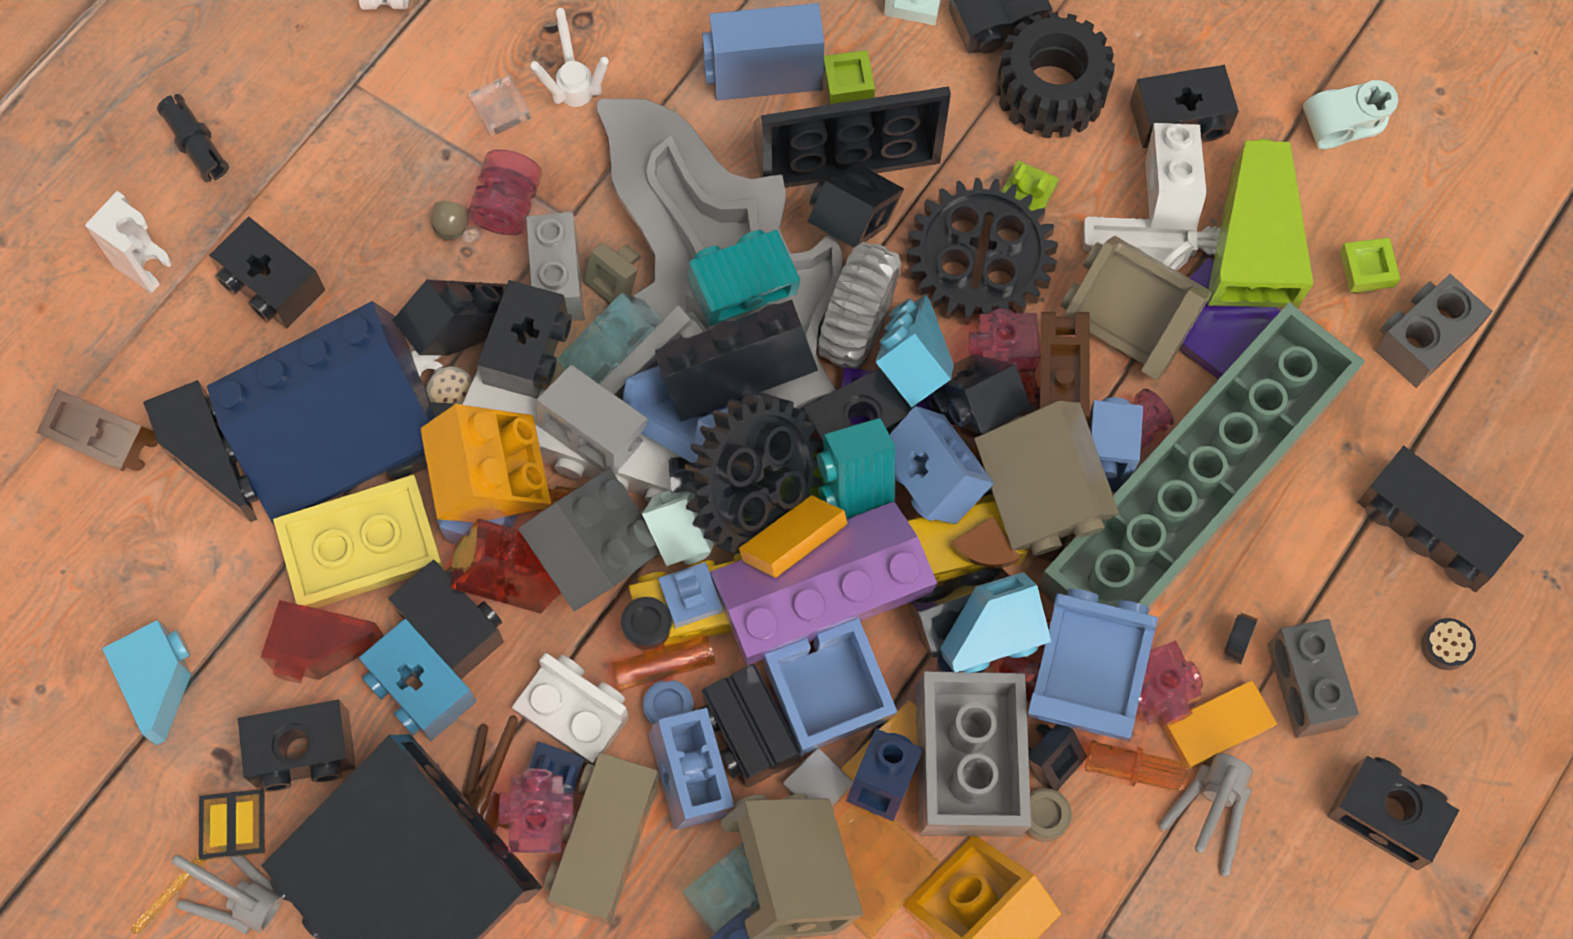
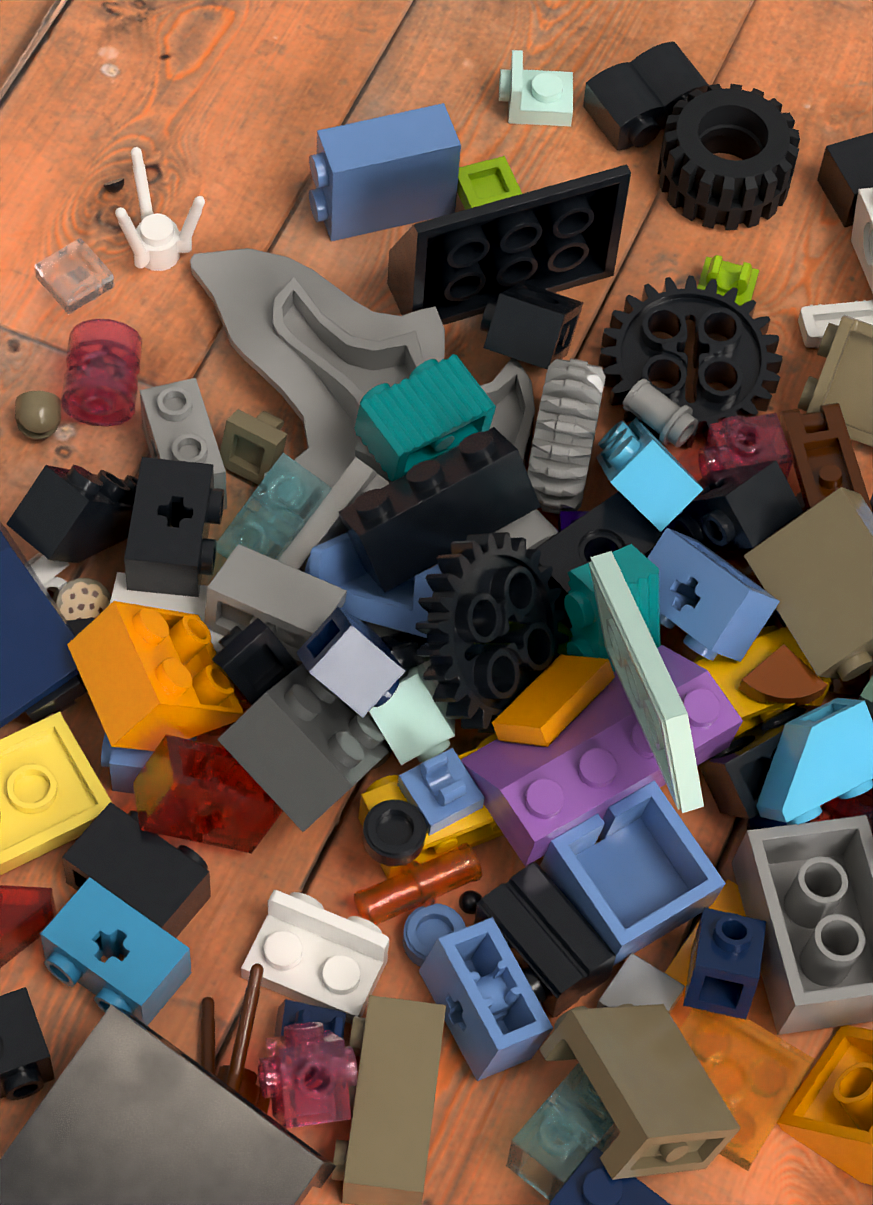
camera: 15 degrees left, 10 degrees down
(563, 464) = (253, 660): none -> black tile
(633, 483) = (352, 662): none -> slope
(704, 679) = (469, 900): none -> black piece
(853, 549) = (646, 682): none -> light aqua tile
(942, 297) = (660, 413): none -> light grey pin

